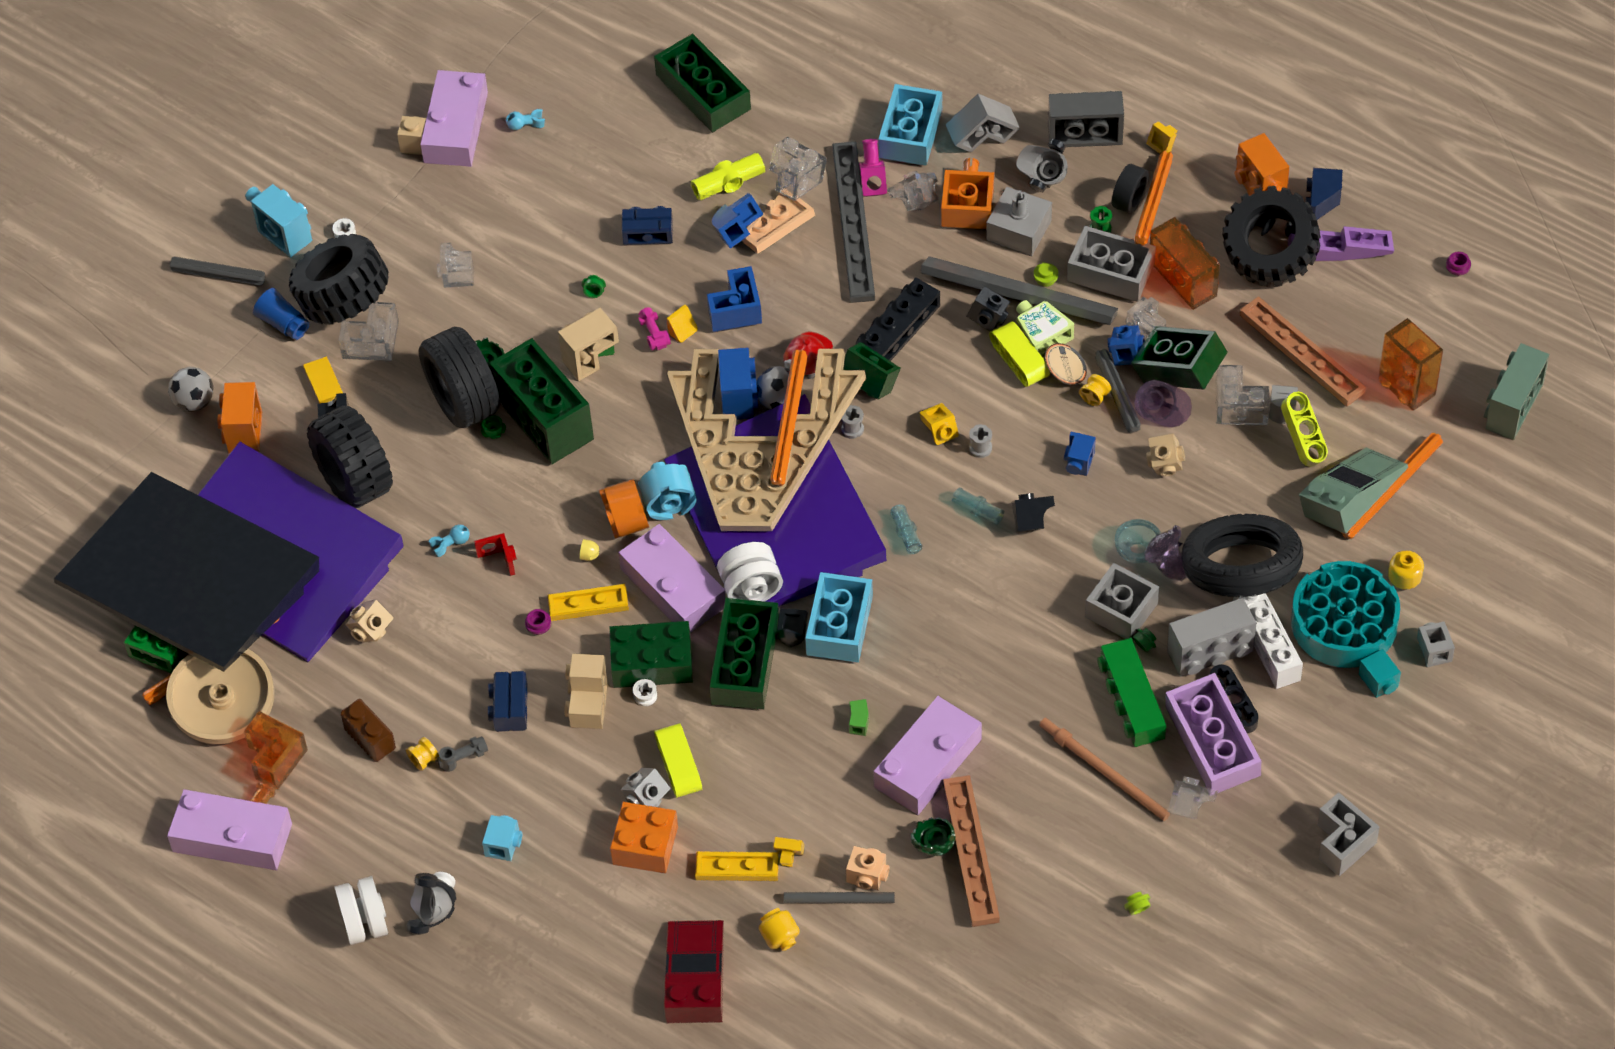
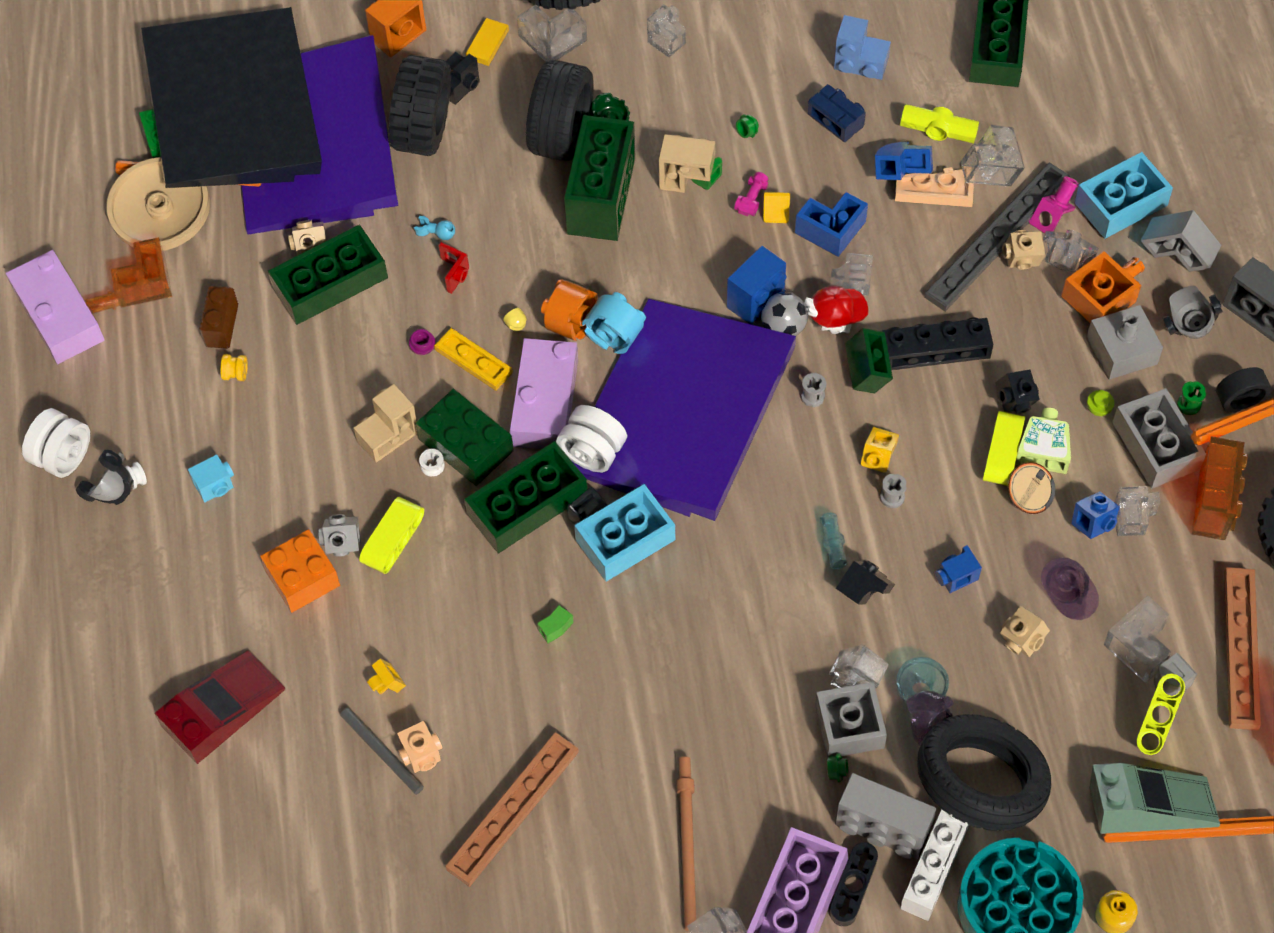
camera: 45 degrees right, 5 degrees up
(415, 632) = (328, 274): none -> dark green brick
(449, 756) = (248, 390): dark grey bar -> none
(492, 422) = (558, 166): green plate -> none
(509, 701) = (333, 382): dark blue brick -> none
(615, 170) = (860, 53): none -> medium blue brick
(737, 866) = (340, 654): yellow tile -> none
(741, 466) = (692, 367): tan wing -> none
(779, 929) = (307, 733): yellow head -> none
(788, 418) = (754, 342): orange axle -> none
(790, 322) = (854, 273): none -> clear brick
(886, 213) = (1024, 249): none -> tan brick
(906, 529) = (758, 510): clear light blue pin -> none
(927, 755) = (566, 702): lavender brick -> none
(933, 836) = (495, 770): dark green hair -> none
(1019, 290) = (1064, 399): dark grey tile -> none
(1087, 568) = (857, 667): none -> clear brick
(1095, 390) = (1030, 529): yellow wheel -> none
(1118, 391) = (1050, 546): dark grey axle -> none
(1132, 693) = (776, 802): green brick -> none
(1180, 357) = (1122, 562): dark green brick -> none

